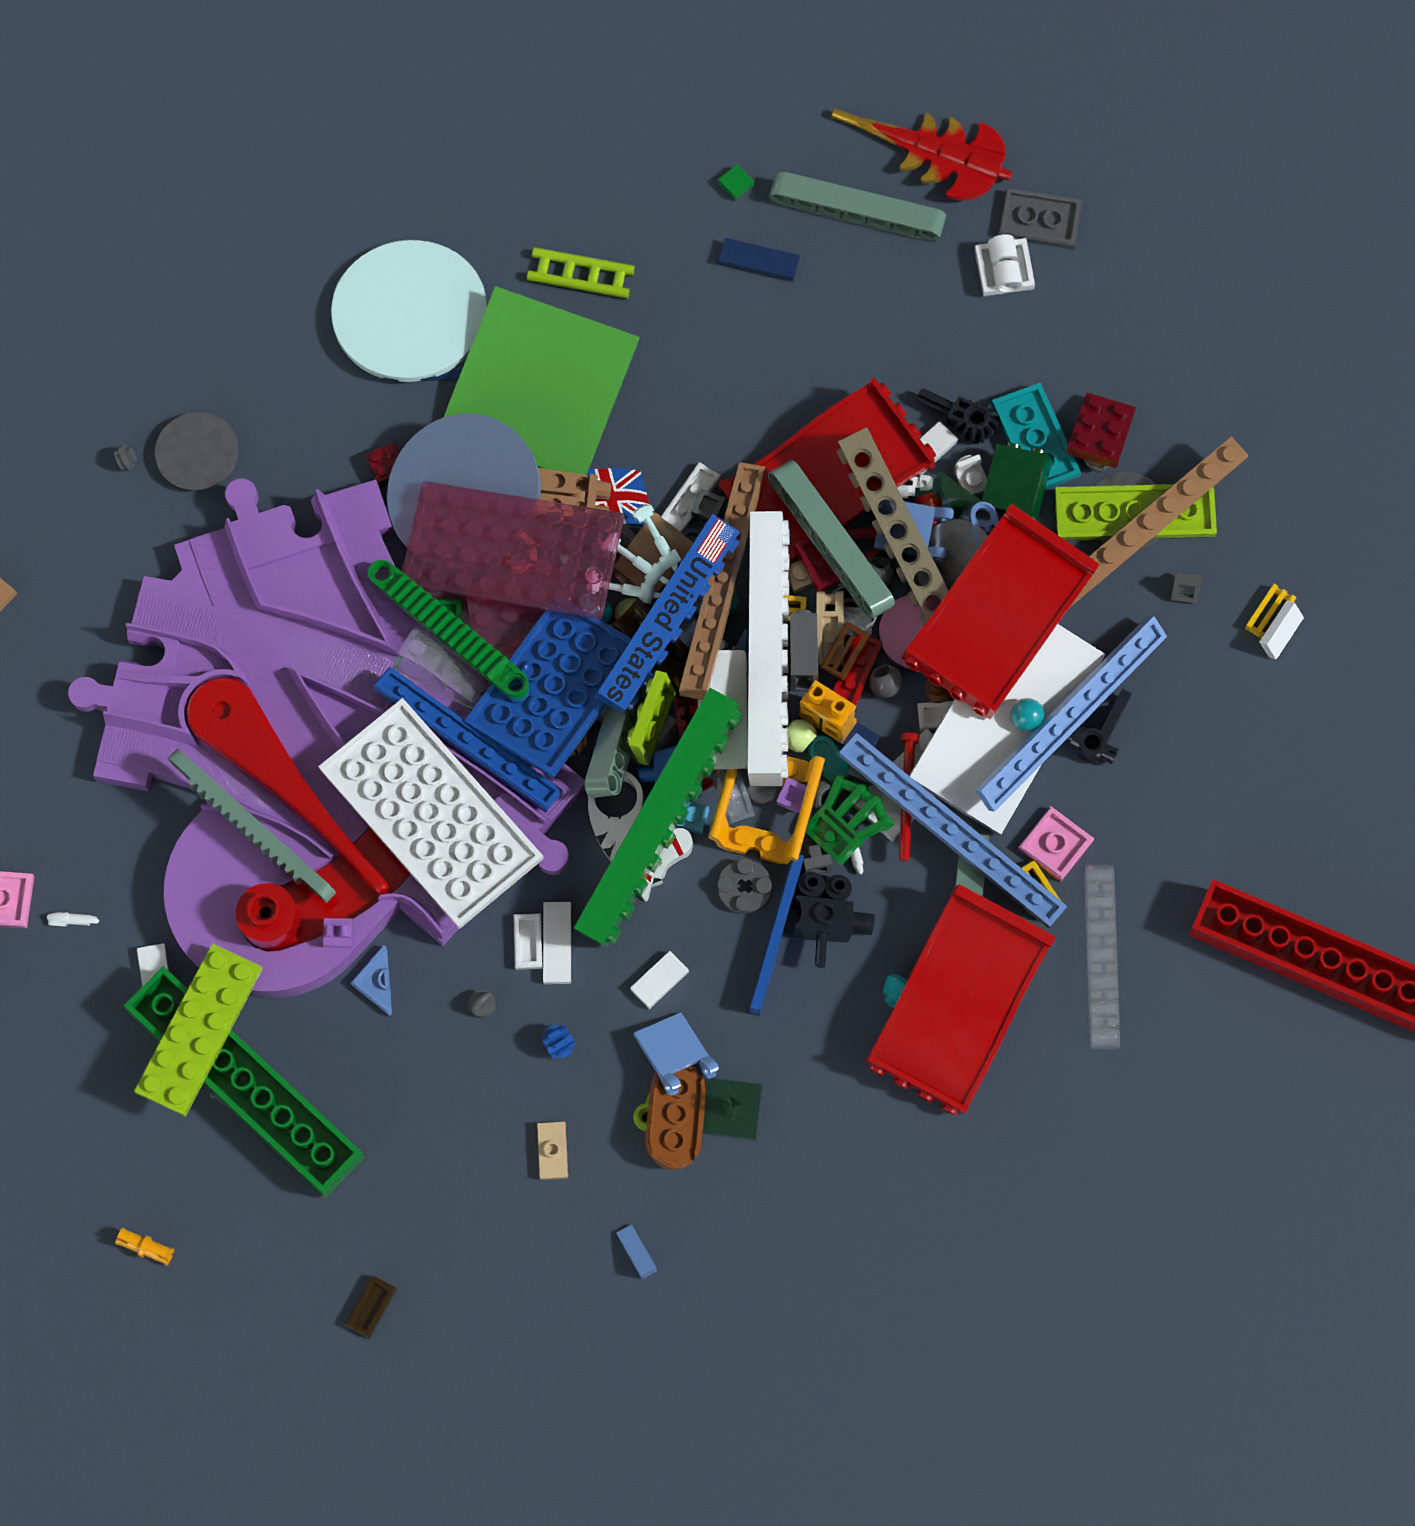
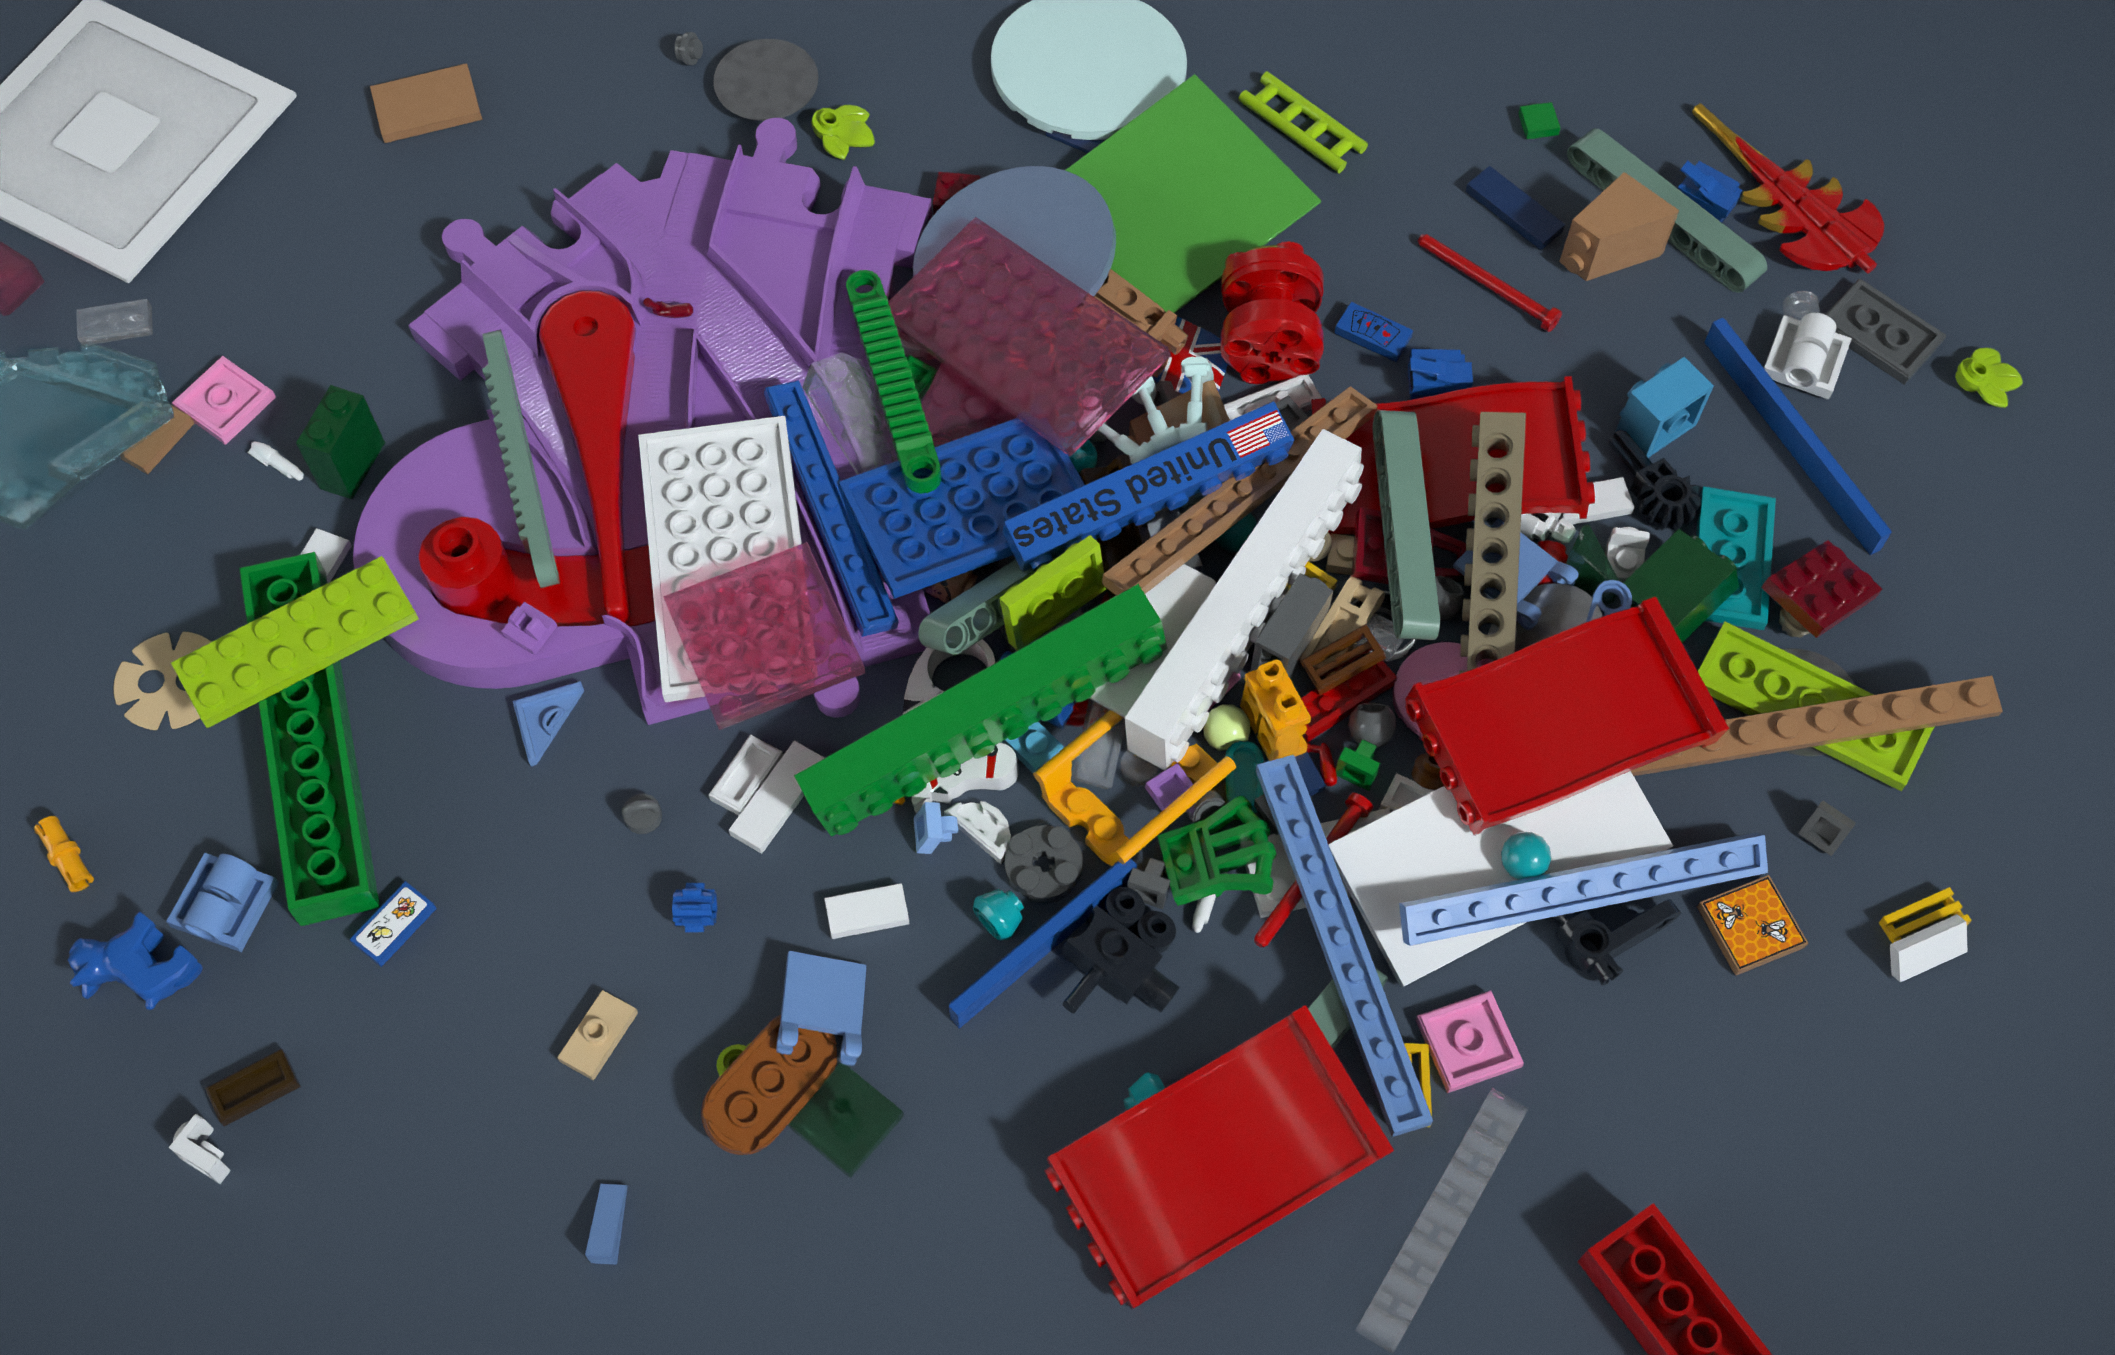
camera: 30 degrees right, 10 degrees down
(97, 1091) = (157, 654): none -> tan piece
(117, 883) = (341, 442): none -> dark green brick
(243, 1283) = (130, 962): none -> blue animal
(257, 666) = (667, 310): none -> dark red piece
(267, 1213) = (223, 901): none -> medium blue plate
(279, 458) = (845, 129): none -> lime plate
(376, 1363) = (191, 1147): none -> white bracket
(380, 1162) = (393, 924): none -> tile
(496, 852) = (763, 635): none -> clear pink plate
(648, 423) = (1272, 313): none -> red piece
(665, 906) = (932, 828): none -> light blue tile
(693, 885) = (984, 826): none -> white tile
(723, 406) = (1373, 331): none -> blue tile
(740, 934) = (999, 913): none -> teal cone
(784, 415) = (1437, 372): none -> blue piece
(791, 327) = (1548, 317): none -> red bar
(838, 244) = (1618, 230): none -> medium nougat slope
(873, 723) = (1327, 765): none -> red piece
(879, 177) = (1710, 189): none -> blue piece
(893, 713) = (1358, 766): none -> green tile
(939, 359) = (1665, 406): none -> dark azure brick
(982, 232) = (1799, 304): none -> clear tile
(1028, 328) = (1797, 437): none -> blue tile
(1123, 215) = (1988, 376): none -> lime plate
(1175, 674) = (1752, 925): none -> tile

